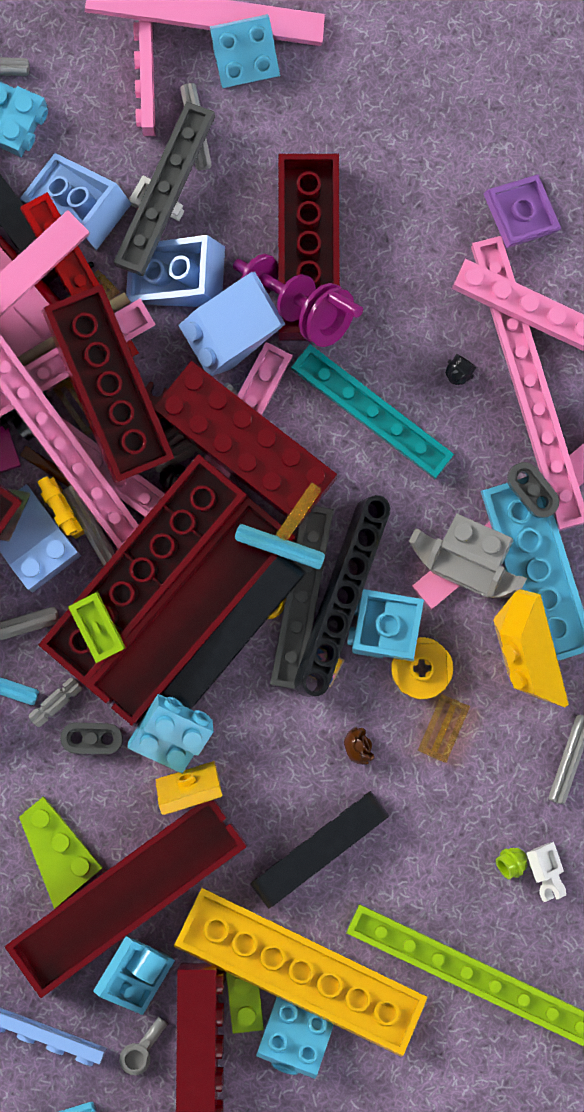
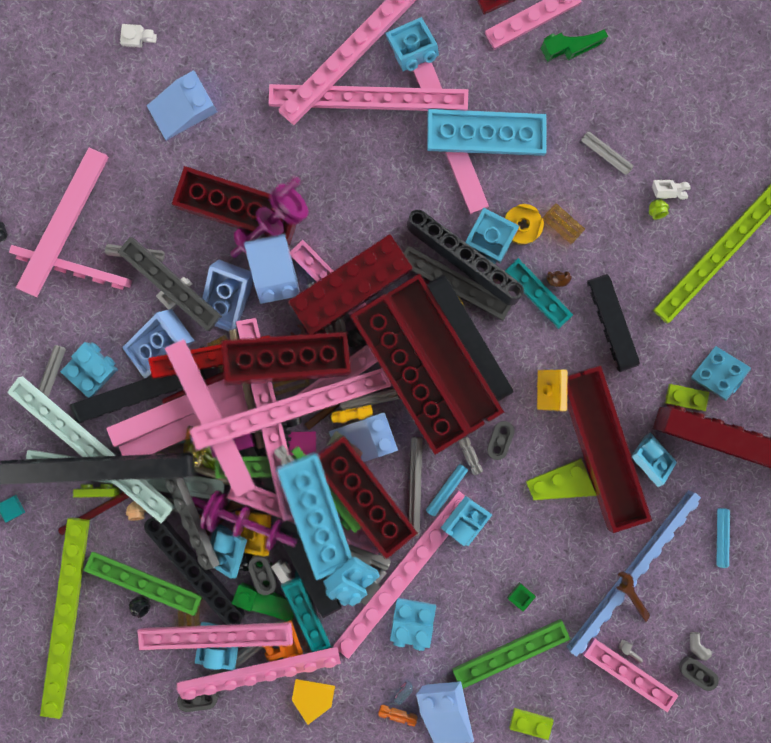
camera: 75 degrees left, 5 degrees up
(96, 627) = (438, 414): lime plate -> none
(136, 1056) = (700, 474): light grey plate -> none
(171, 733) = (515, 389): medium azure plate -> none
(244, 51) = (96, 205): medium azure plate -> none
(282, 548) = (423, 284): medium azure axle -> none
(298, 512) = (408, 264): clear yellow tile -> none
(301, 972) = (683, 358): yellow plate -> none
(328, 724) = (539, 294): none -> teal tile
(372, 411) = (354, 201): teal plate -> none
(428, 123) = (181, 105): none -> light blue slope
(459, 370) = (346, 139): black plate -> none
(469, 557) = (467, 170): light grey plate -> none
(507, 25) = (134, 35): none -> white plate
(522, 211) = (258, 66): medium lavender tile -> none
(529, 648) = (535, 152): yellow wedge -> none
(535, 487) = (438, 117): dark grey plate -> none

